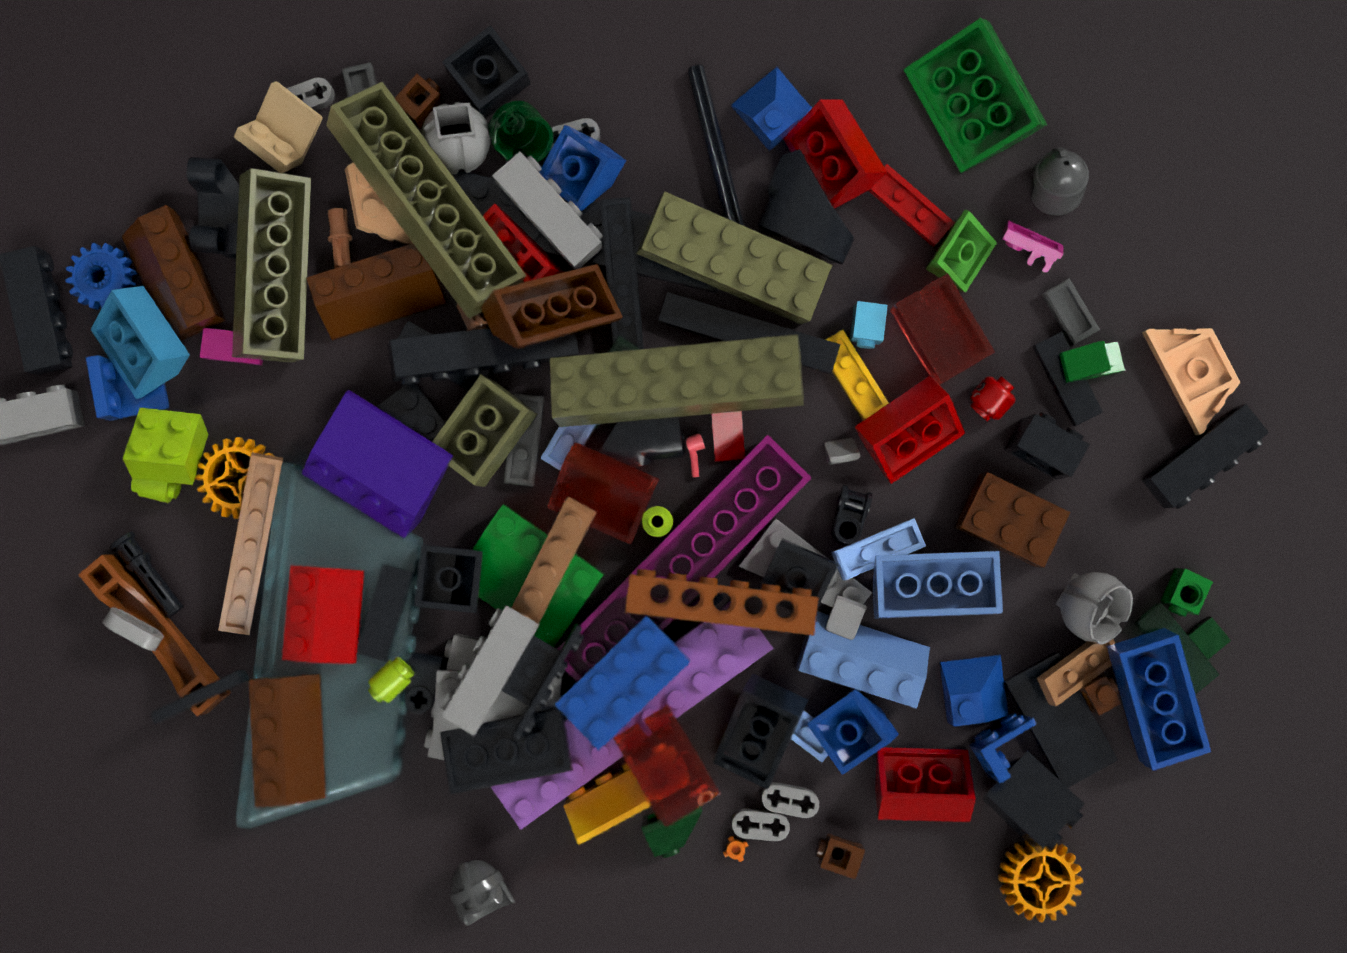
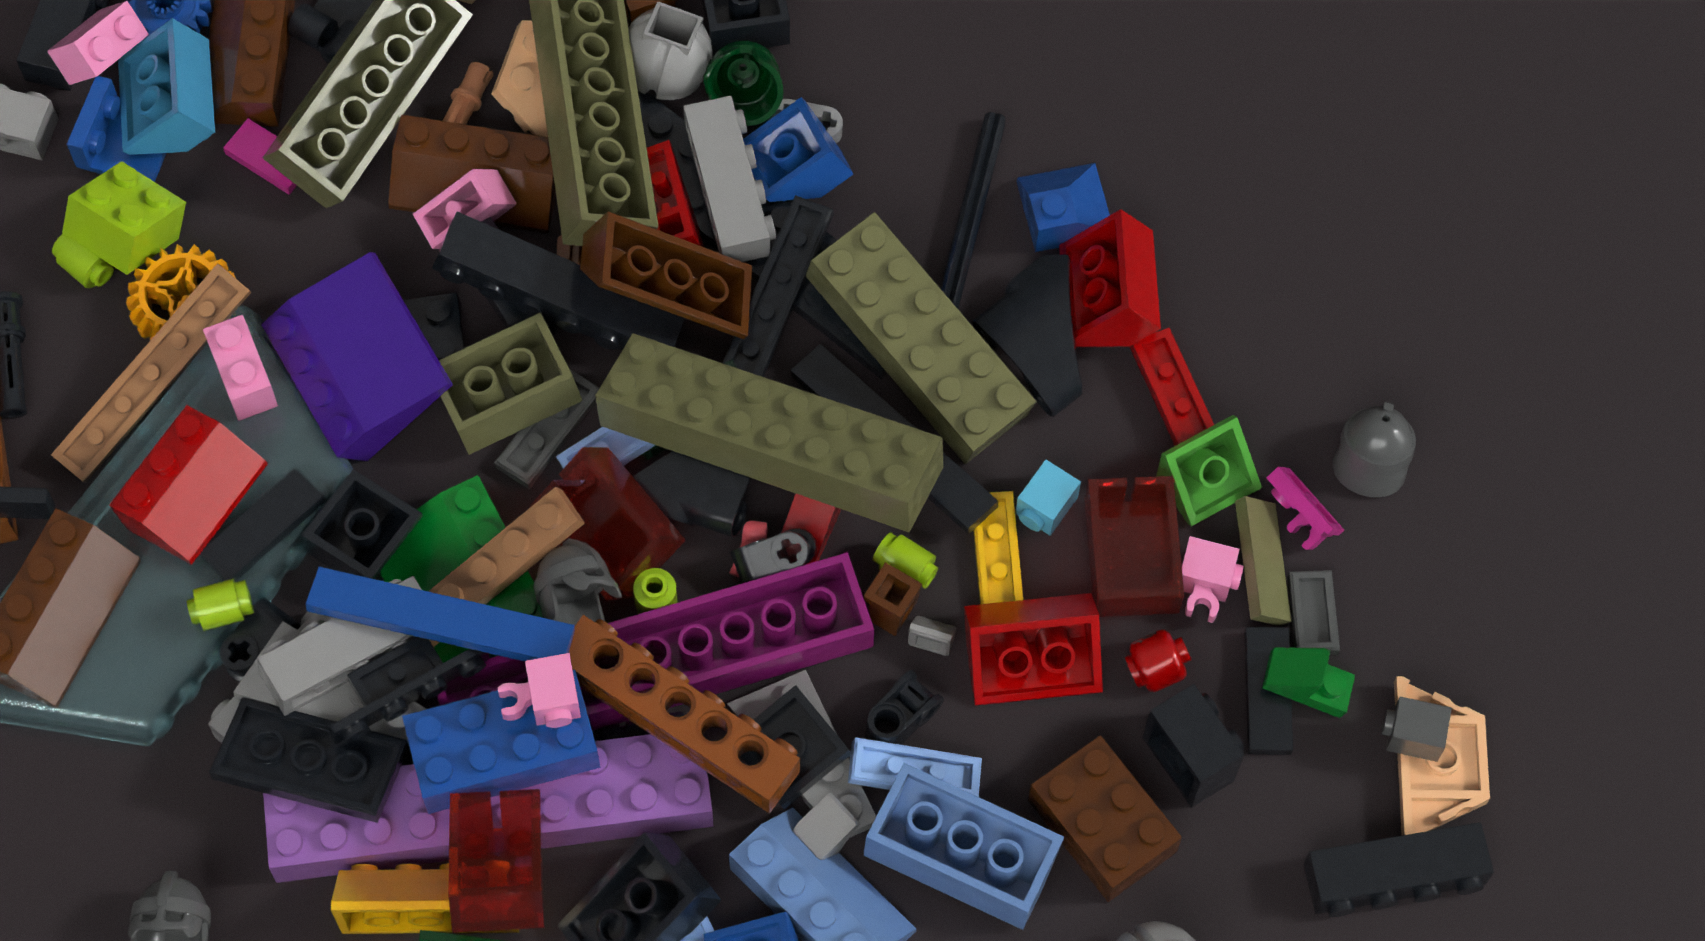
camera: 25 degrees right, 20 degrees down
(72, 331) = (98, 43): none -> bright pink brick
(307, 515) = (240, 367): none -> bright pink brick
(387, 322) = (476, 194): none -> bright pink brick
(541, 628) = (437, 616): none -> blue tile
(607, 555) = (571, 581): none -> dark grey helmet
(643, 646) = (548, 689): none -> bright pink brick
(715, 460) = (770, 555): none -> black piece
(802, 417) = (907, 558): none -> lime brick
(808, 446) = (891, 598): none -> reddish brown brick
(974, 95) = (1321, 305): green slope -> none
(996, 321) = (1209, 573): none -> bright pink brick
(1024, 295) = (1263, 561): none -> olive tile
(1180, 363) = (1416, 728): none -> dark grey brick

